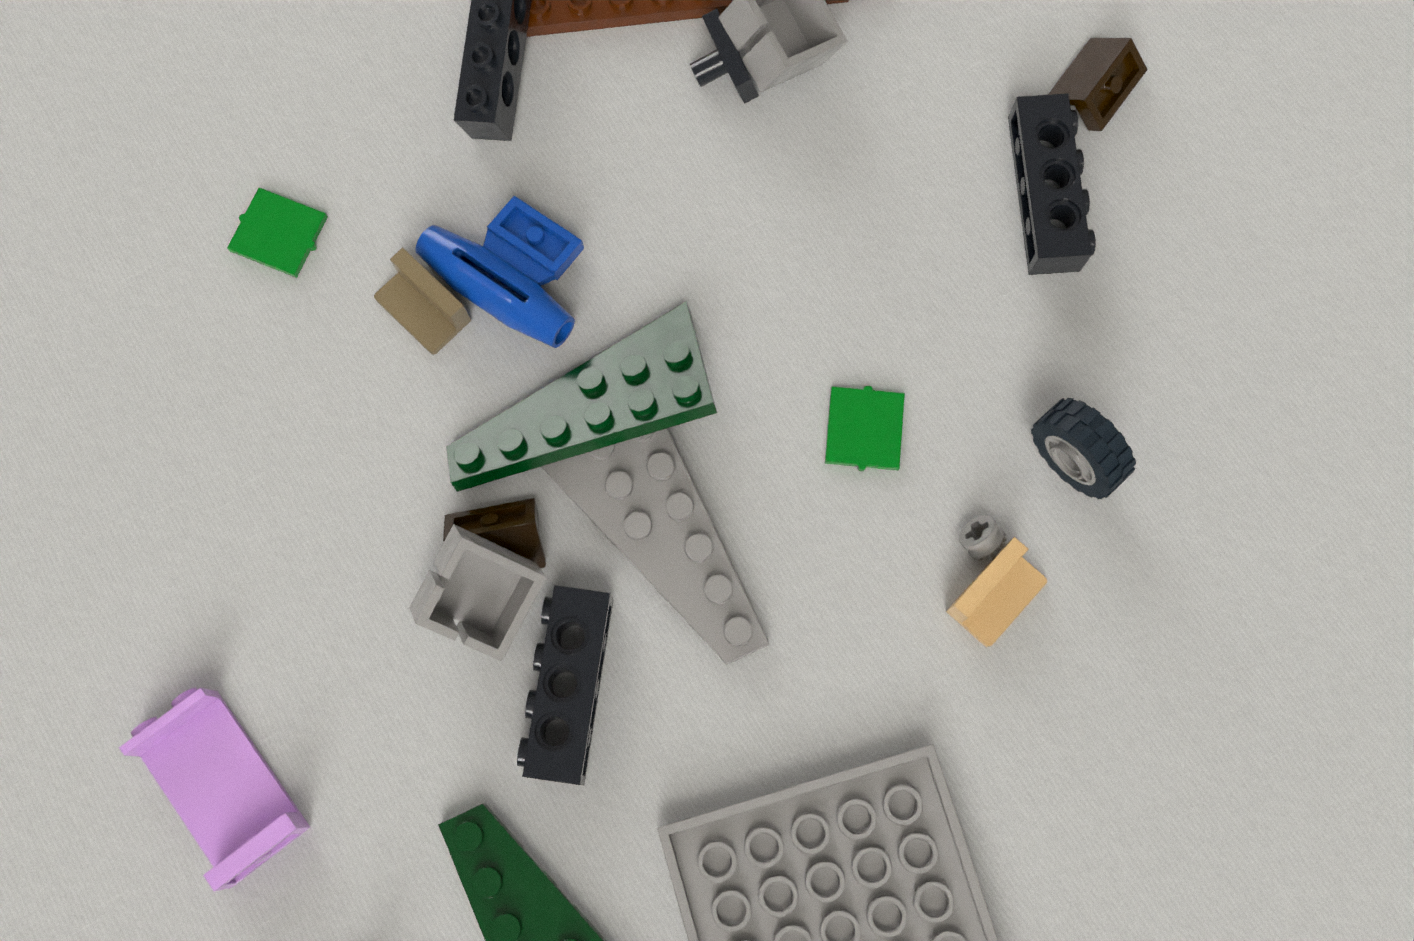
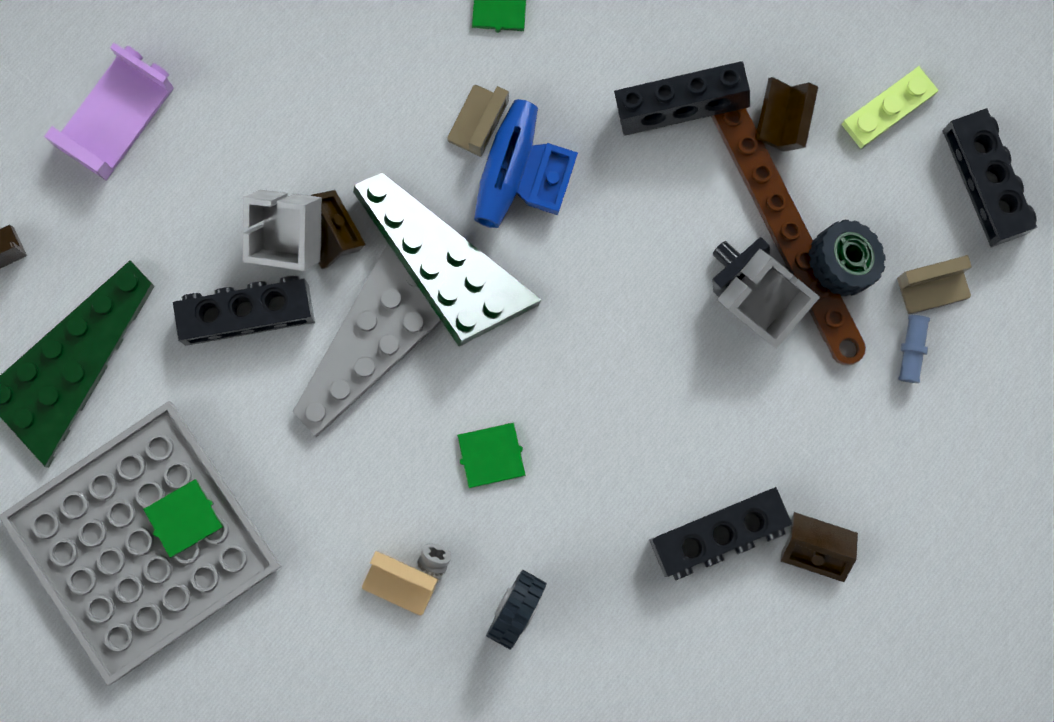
camera: 65 degrees right, 5 degrees up
(828, 857) = (183, 518): none -> green piece

